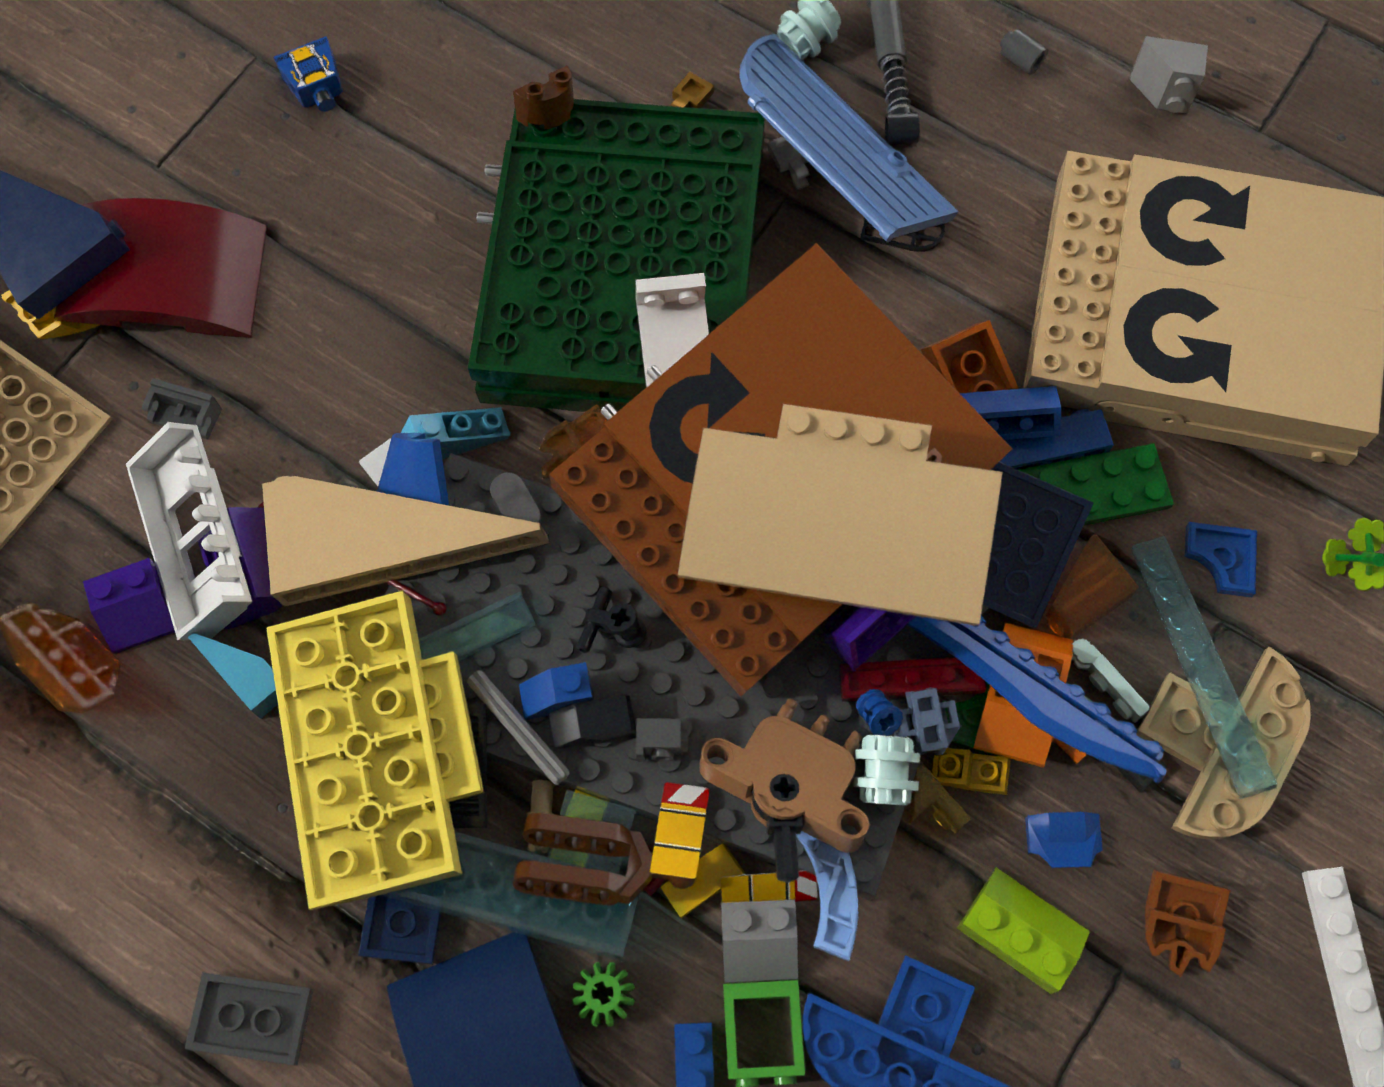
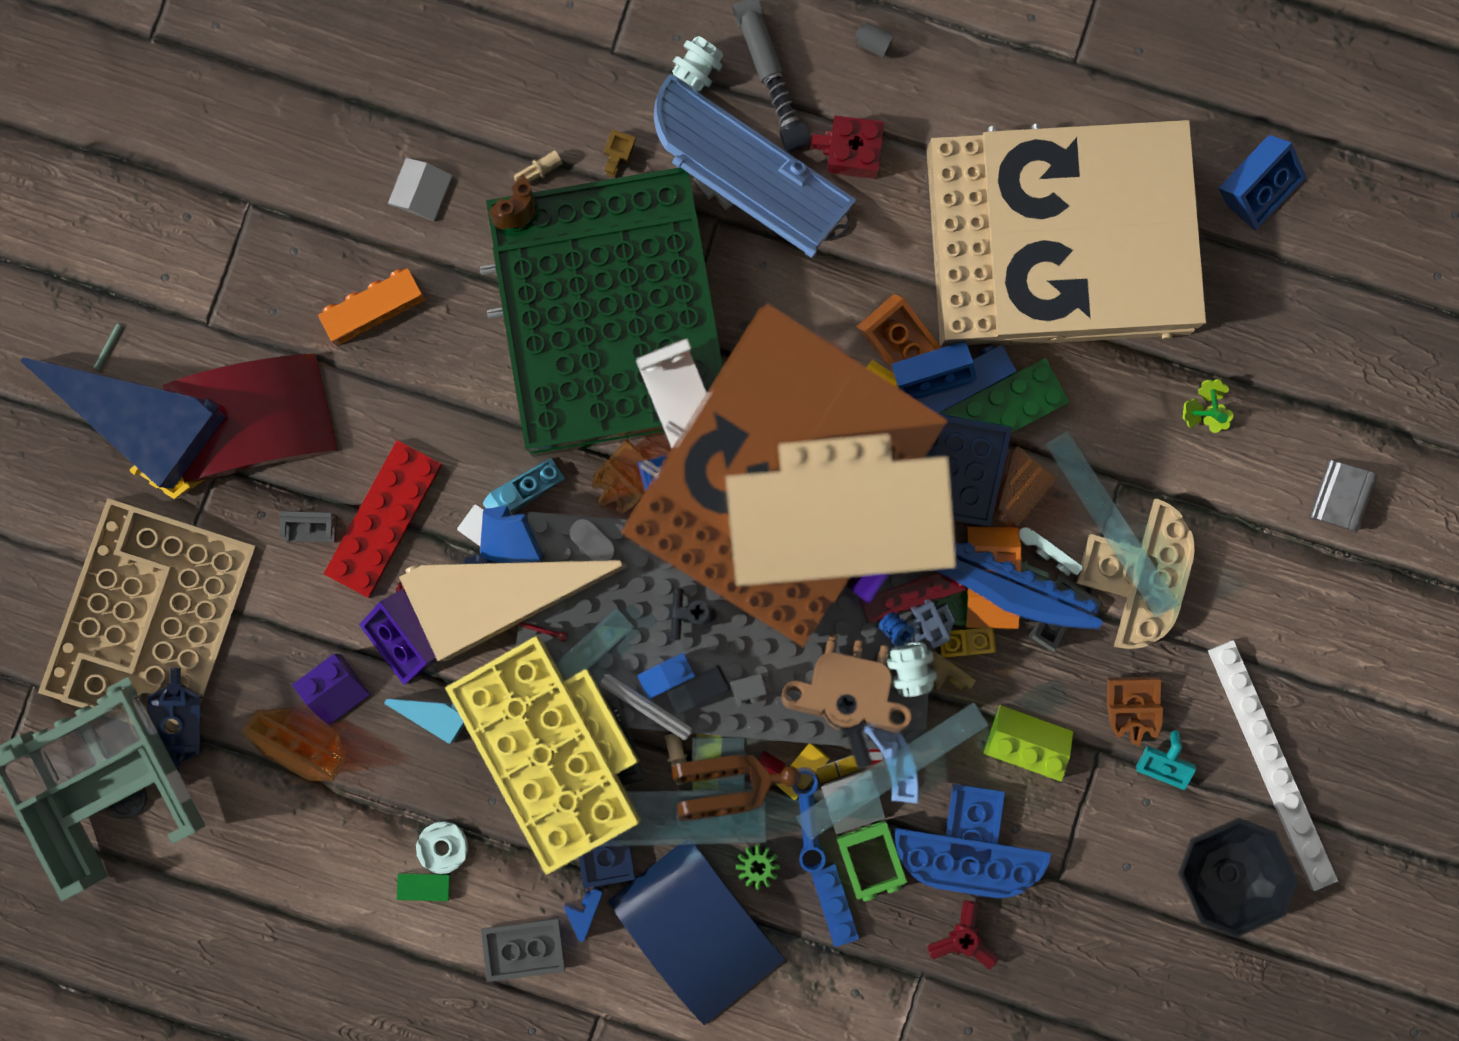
camera: 15 degrees left, 15 degrees up
(42, 159) = (108, 347): none -> sand green piece
(151, 894) = (423, 886): none -> green tile
(163, 478) = (318, 589): white window -> none
(212, 860) = (427, 847): none -> light aqua tile
(281, 420) = (383, 519): none -> red plate
(311, 74) = (305, 211): torso -> none
(344, 999) = (582, 918): none -> blue slope
(348, 189) = (371, 306): none -> orange brick
(451, 86) = (420, 189): none -> light grey slope
(598, 92) = (540, 167): none -> tan axle
(679, 830) = (780, 747): yellow sticker -> none
(691, 952) = (806, 800): none -> blue piece
(822, 902) = (891, 771): none -> clear light blue tile
(967, 152) = (840, 141): none -> dark red hinge
(1064, 838) = (1043, 673): blue slope -> none
(1087, 781) = (1048, 635): none -> dark grey slope
(1169, 72) = (996, 36): light grey slope -> none
(1215, 1016) = (1167, 766): none -> teal plate
(1227, 554) = (1115, 430): blue tile -> none

